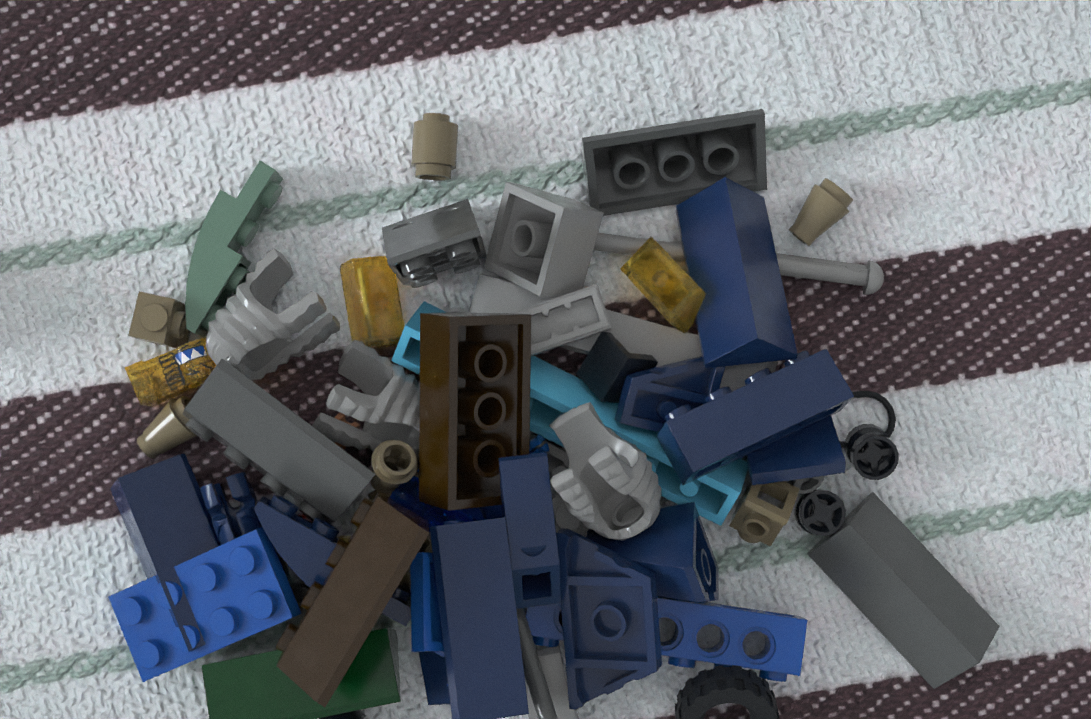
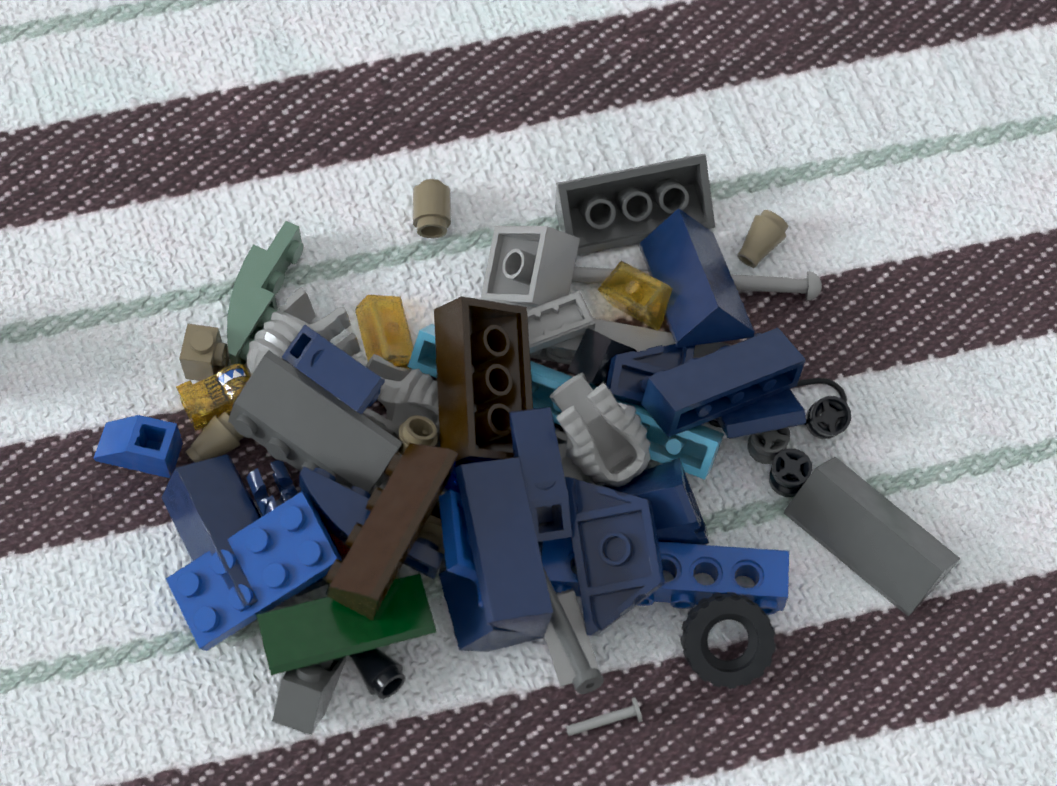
camera: 10 degrees left, 20 degrees down
(85, 433) = (140, 445): none -> blue slope
(298, 386) = (334, 369): none -> dark blue slope
(433, 244) = (440, 277): dark grey slope -> none
(760, 520) = (747, 459): dark tan brick -> none

